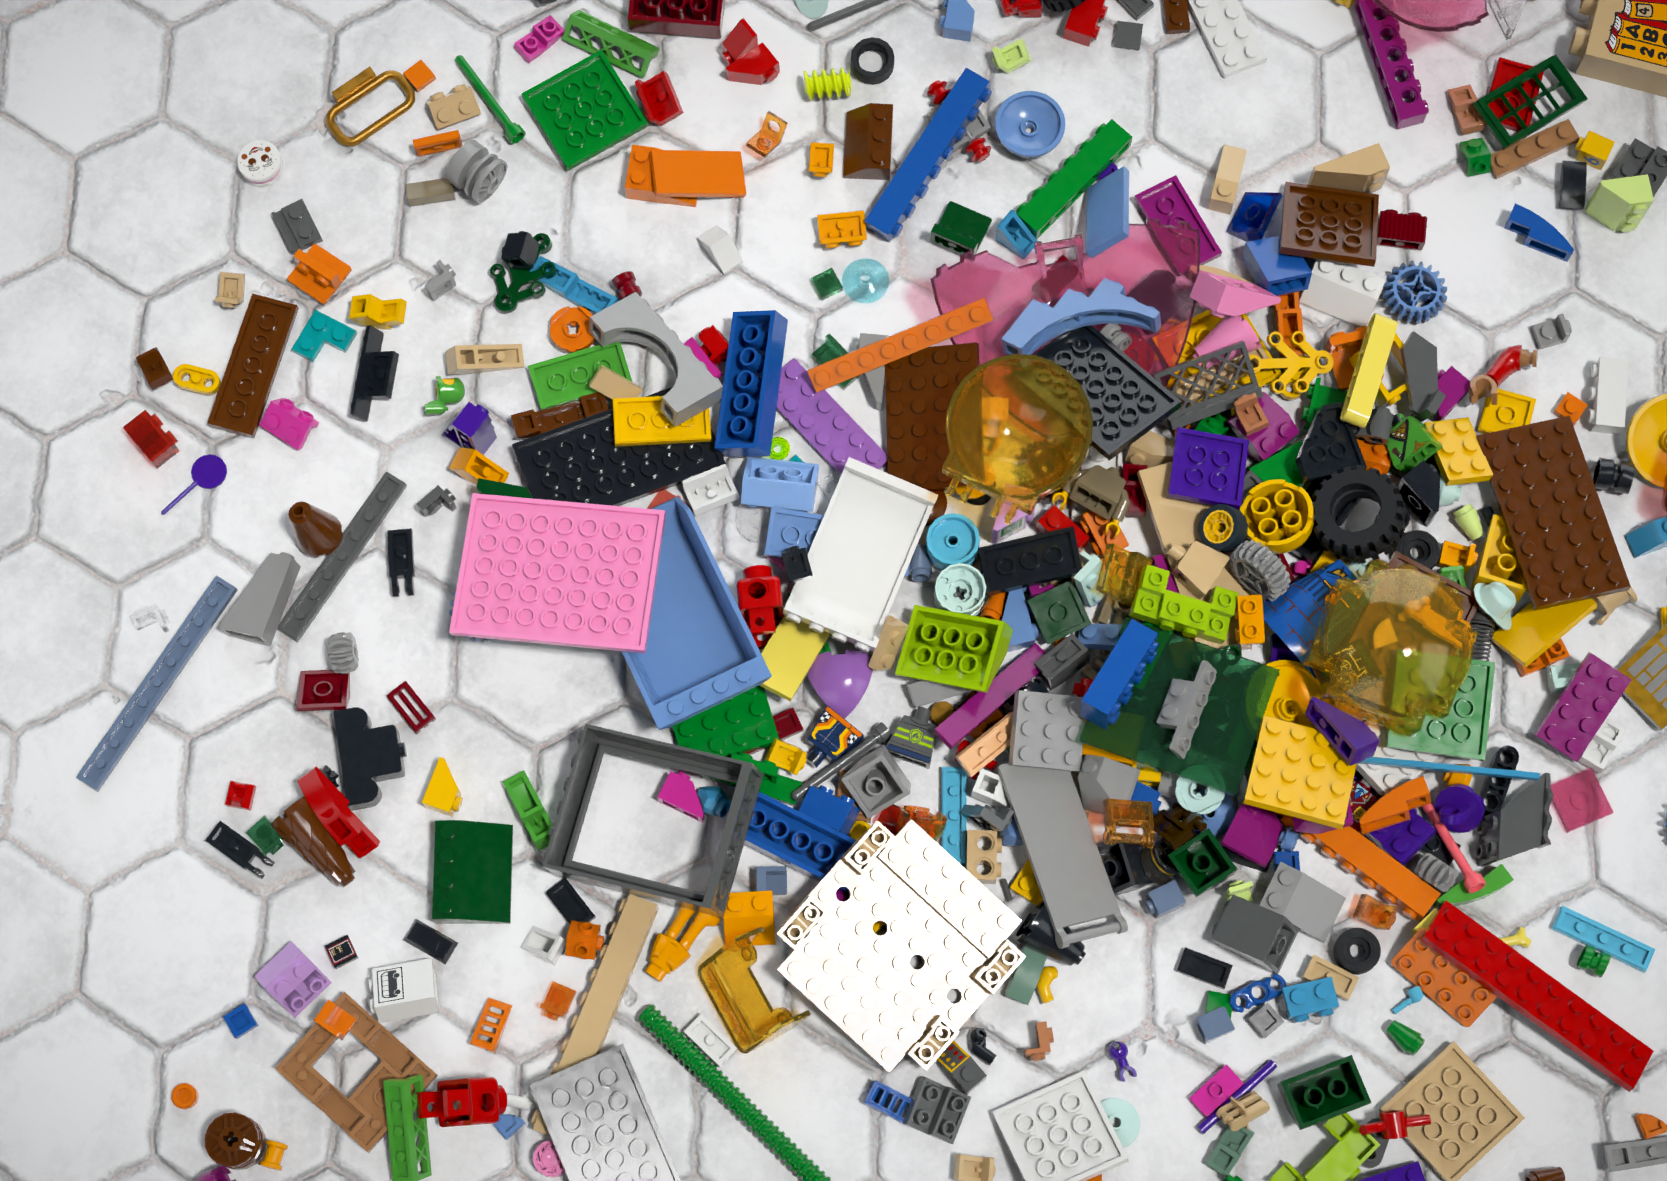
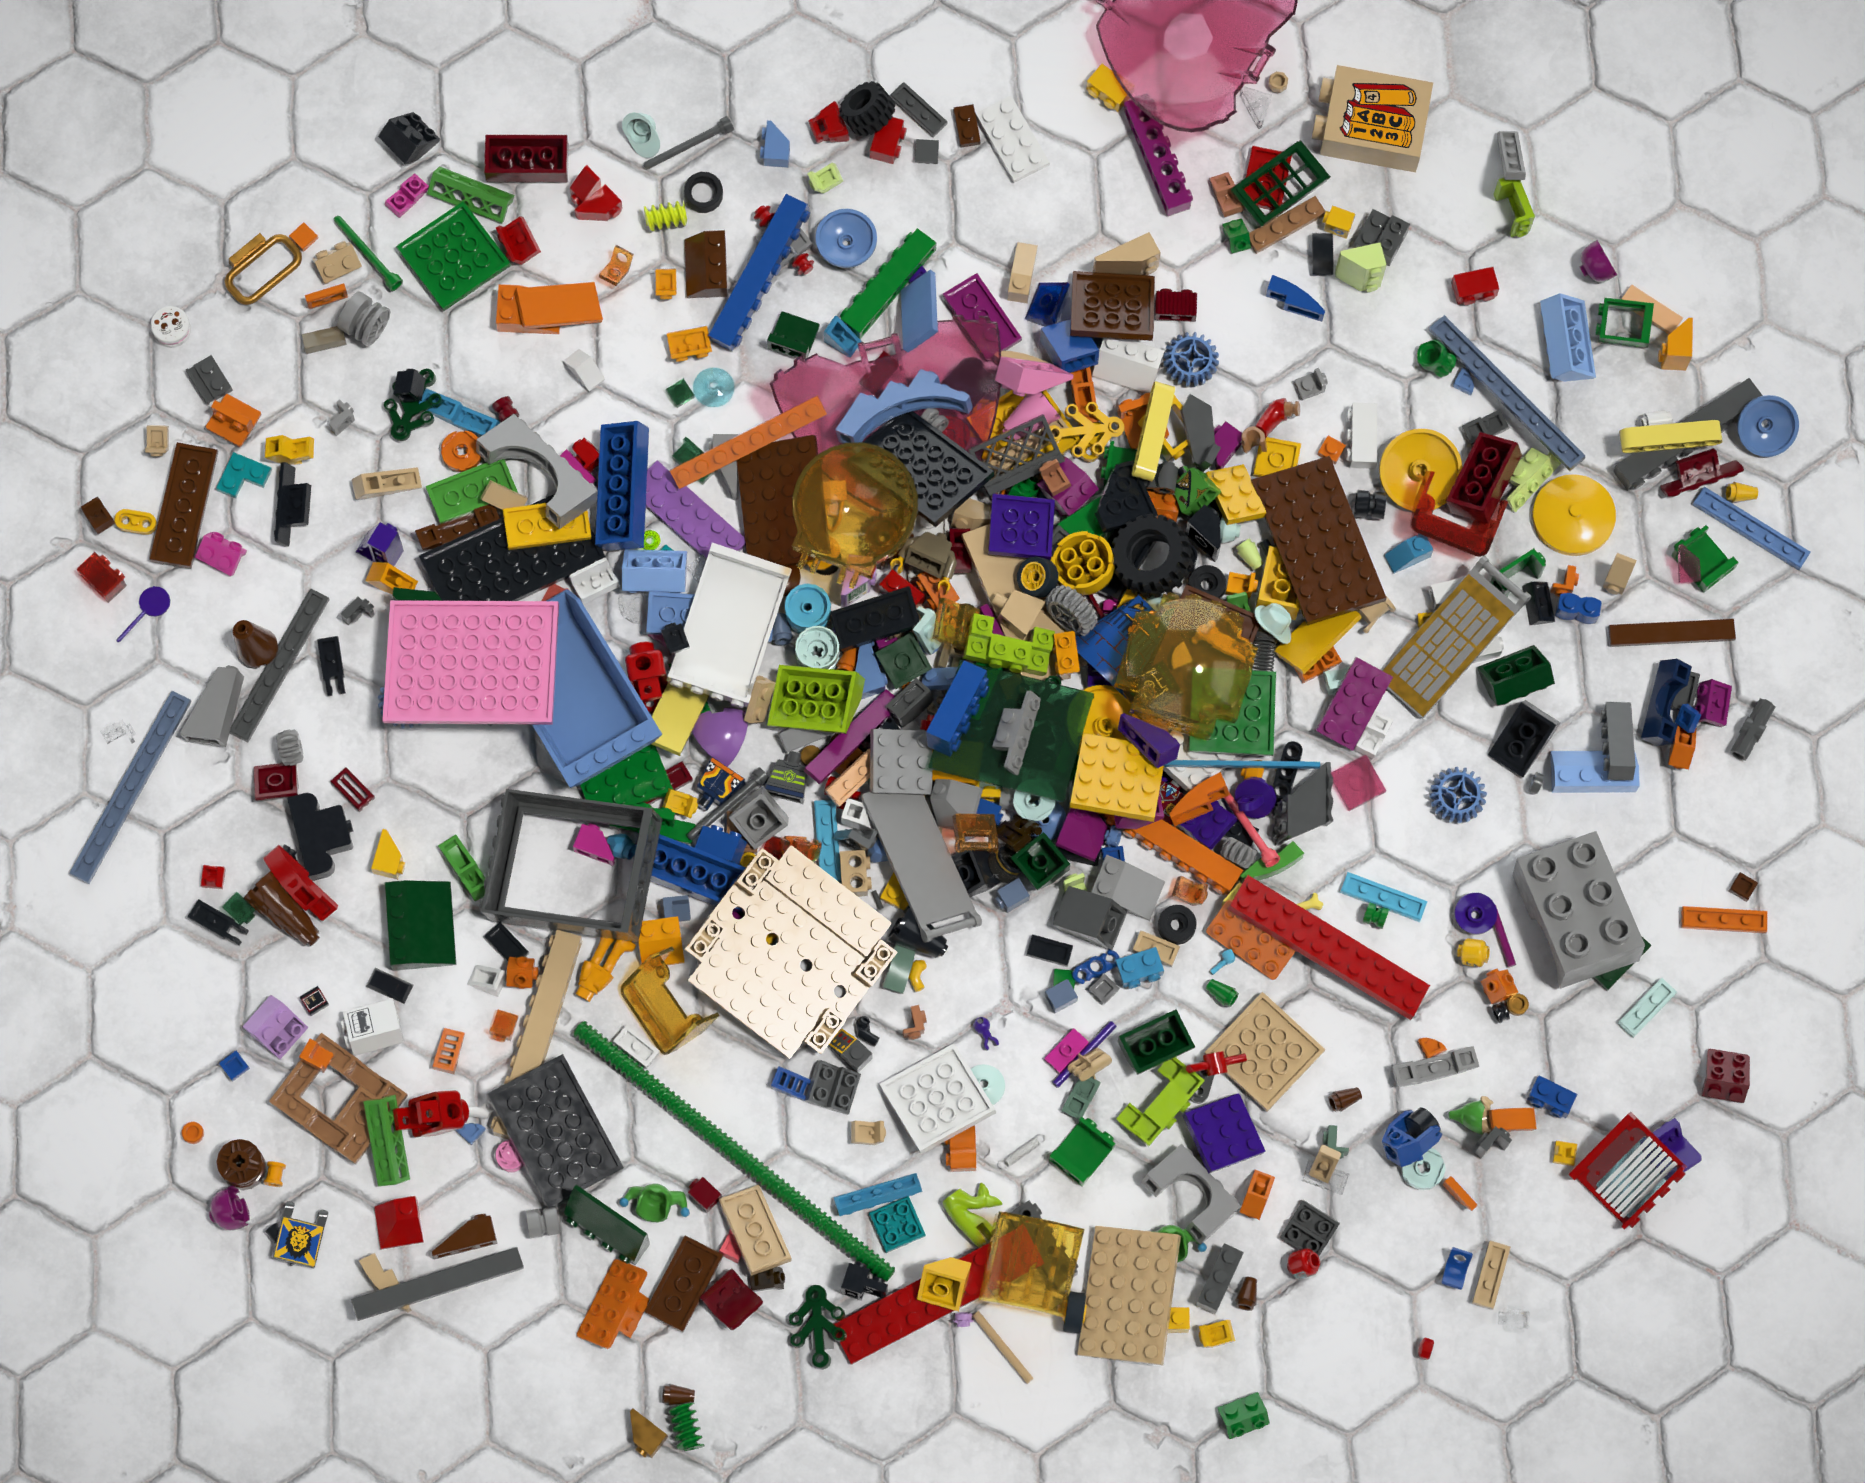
camera: 10 degrees left, 0 degrees up
(447, 392) = (357, 515): bright green piece -> none

